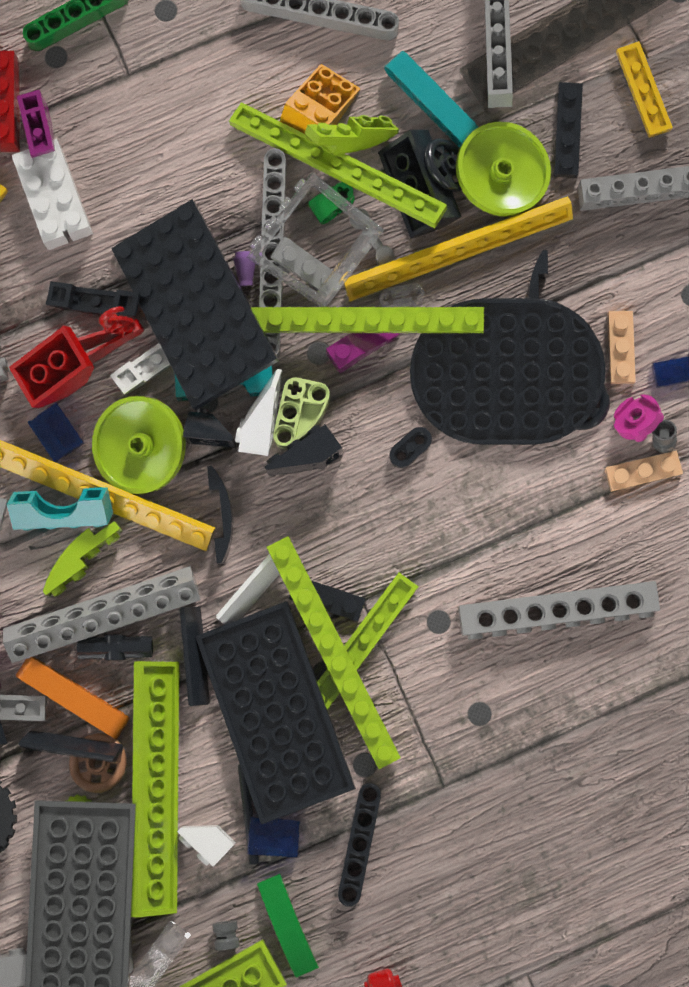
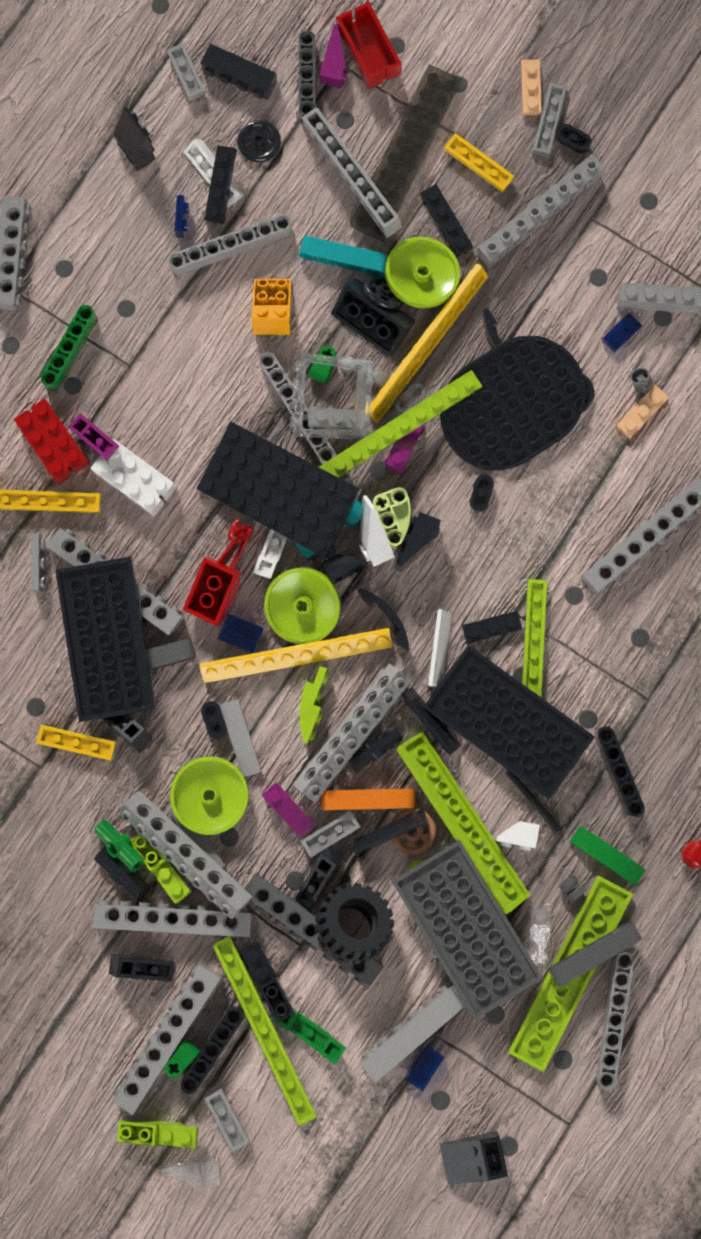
camera: 30 degrees left, 0 degrees up
(31, 511) = (261, 695): teal arch -> none
(90, 300) = (206, 531): black slope -> none
(244, 268) = (293, 444): medium lavender cone -> none
(273, 838) = (561, 804): clear blue plate -> none
(333, 652) = (521, 658): lime plate -> none
(338, 165) = (312, 337): lime plate -> none
(354, 136) = (310, 312): lime slope -> none
(621, 347) = (574, 340): light nougat plate -> none
(638, 429) = (624, 383): dark pink plate -> none

